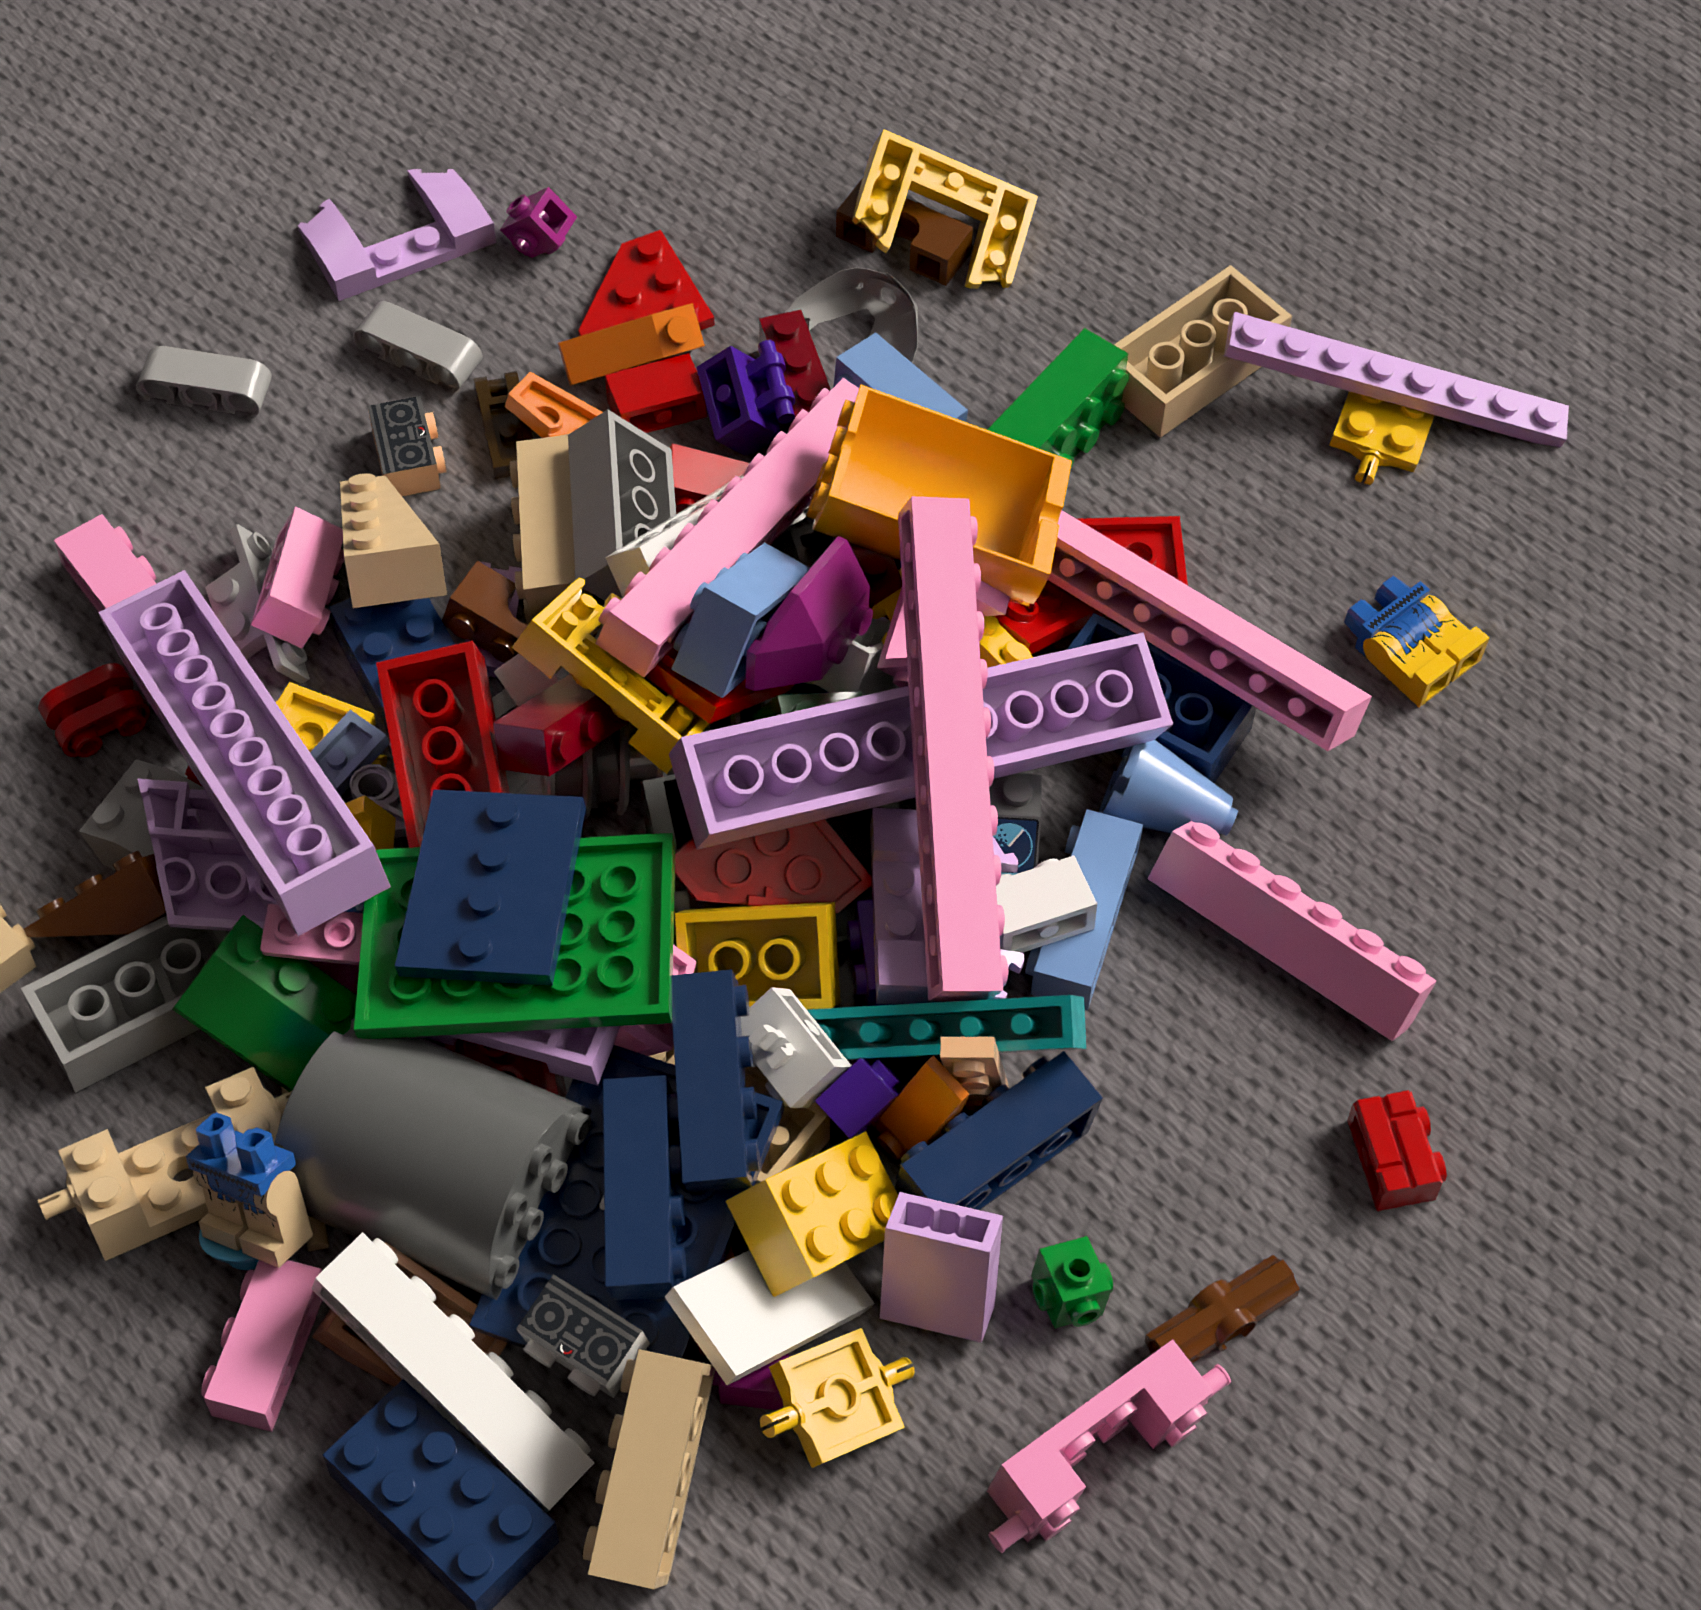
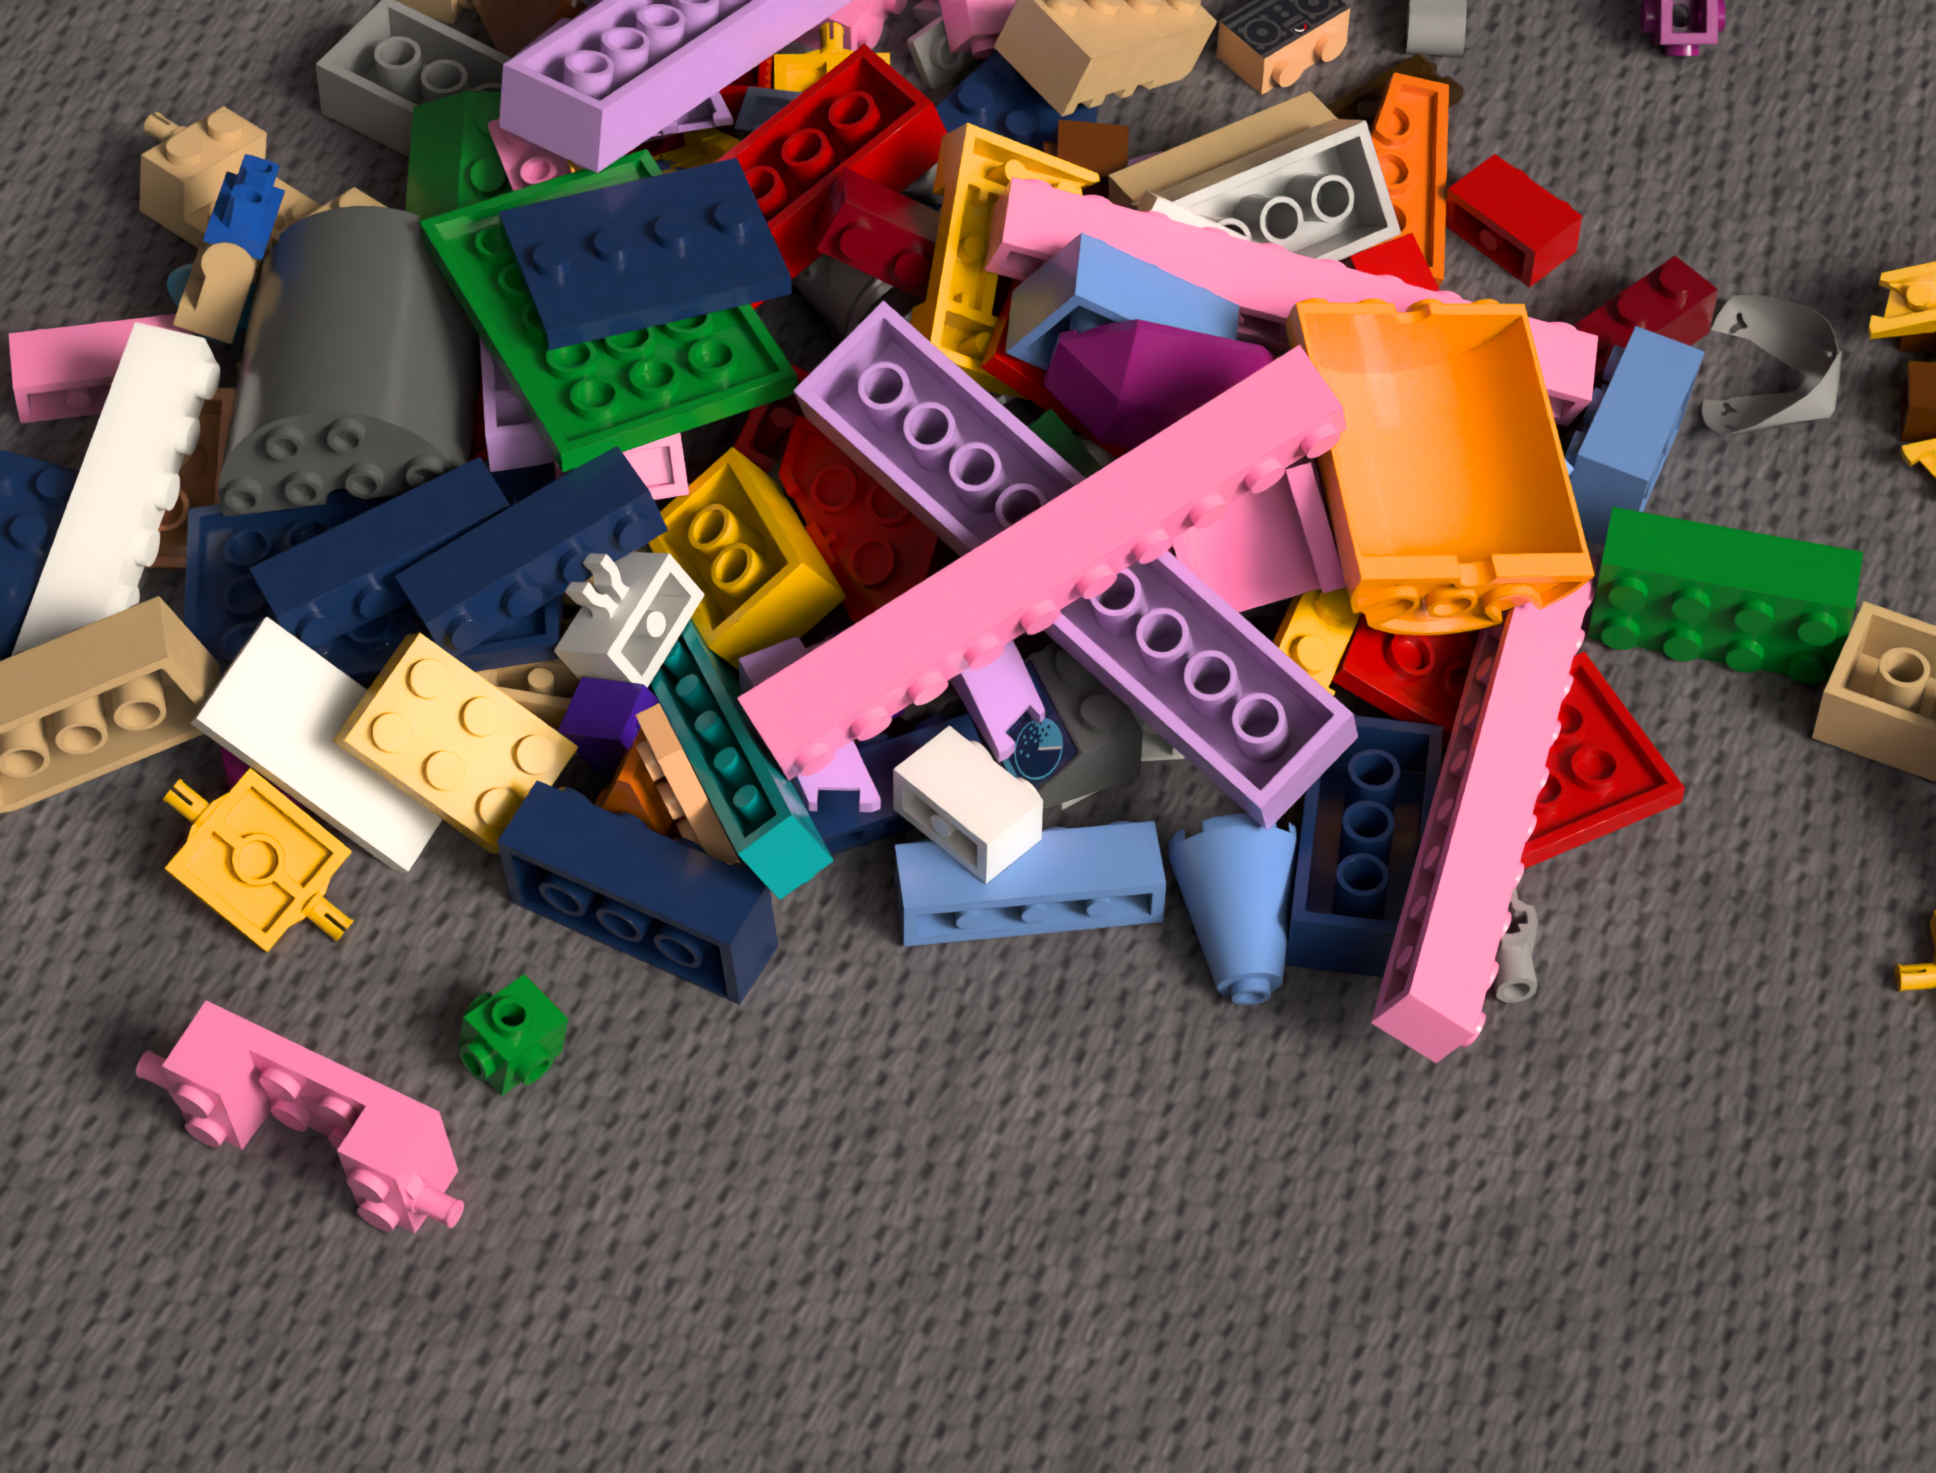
camera: 65 degrees right, 5 degrees down
(580, 1336) = (207, 580): brick -> none
(631, 344) = (1567, 166): orange slope -> none
(642, 282) = (1653, 165): red plate -> none
(746, 397) = (1559, 278): dark purple brick -> none
(940, 1266) = (449, 884): lavender brick -> none
(1227, 1310) = (552, 1207): reddish brown piece -> none
(1292, 929) = (1116, 1102): bright pink brick -> none
(1396, 1150) = (868, 1317): red brick -> none
(1414, 639) = (1665, 1084): hips -> none

